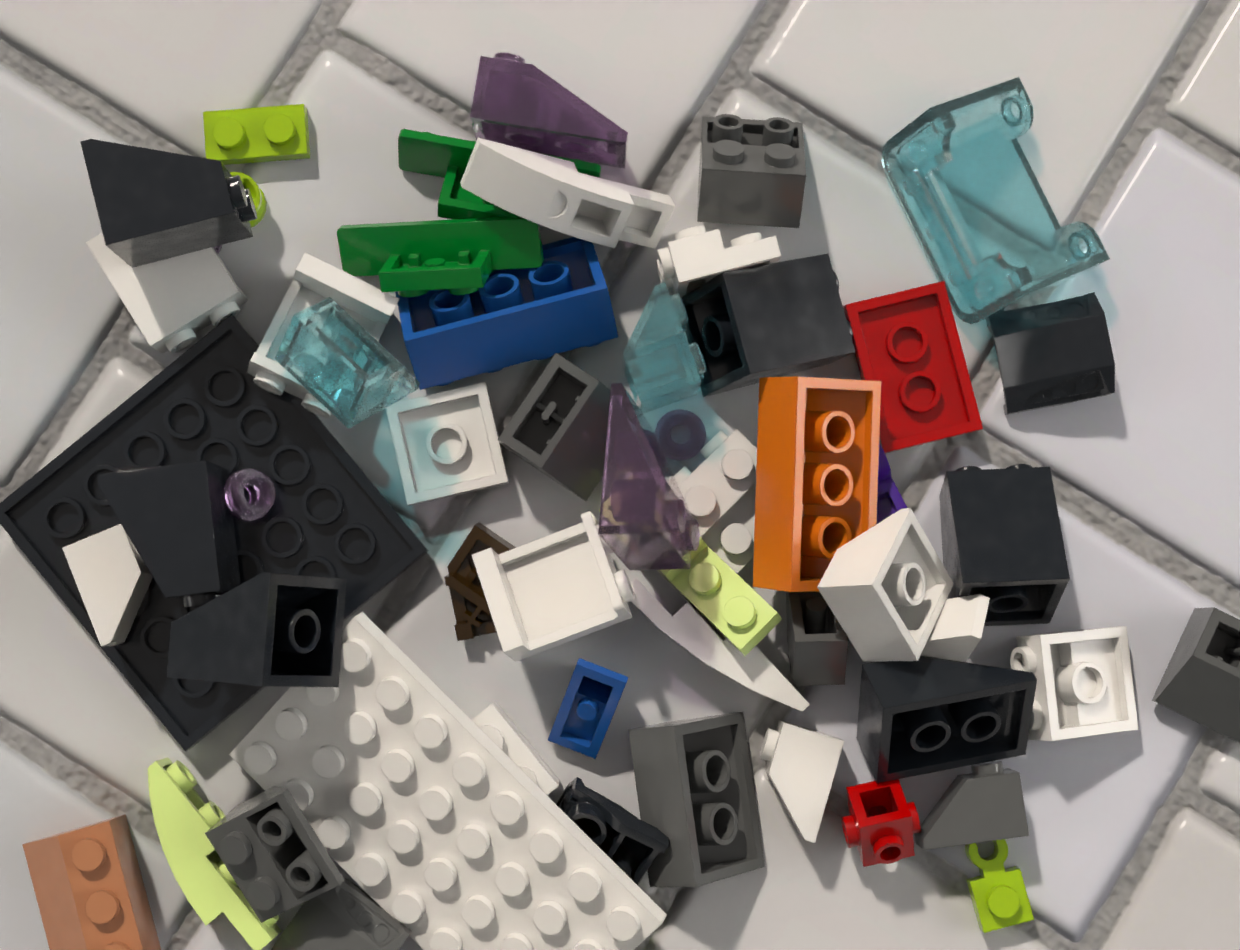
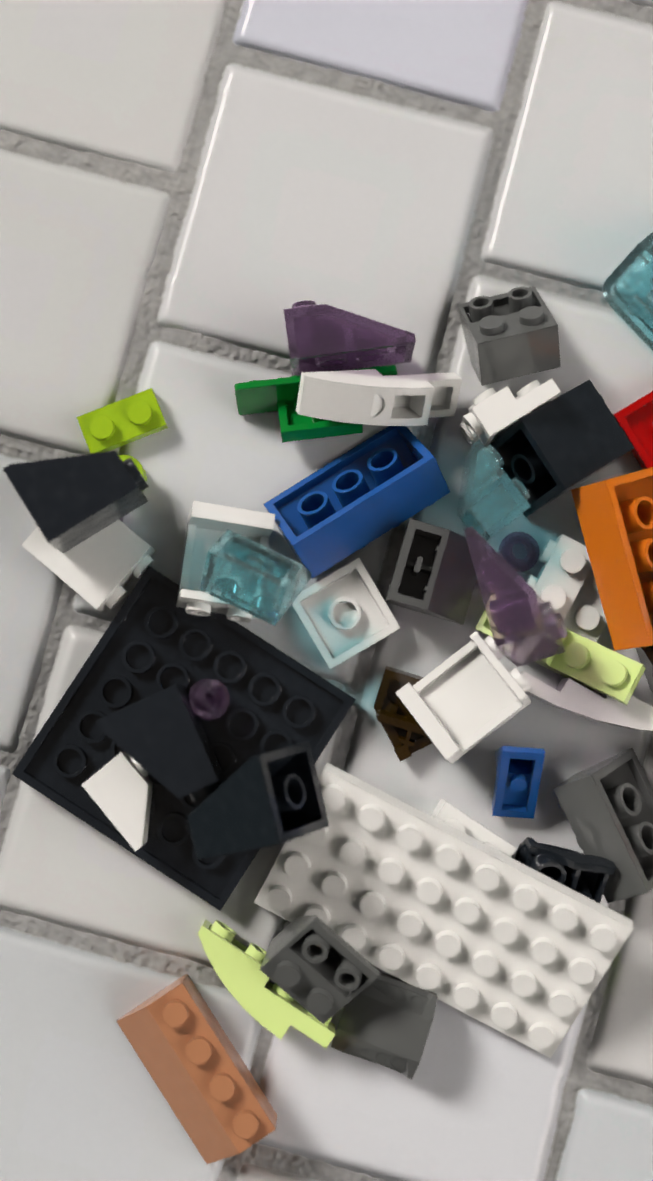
camera: 15 degrees left, 0 degrees up
(439, 252) = (293, 470): green bracket -> none

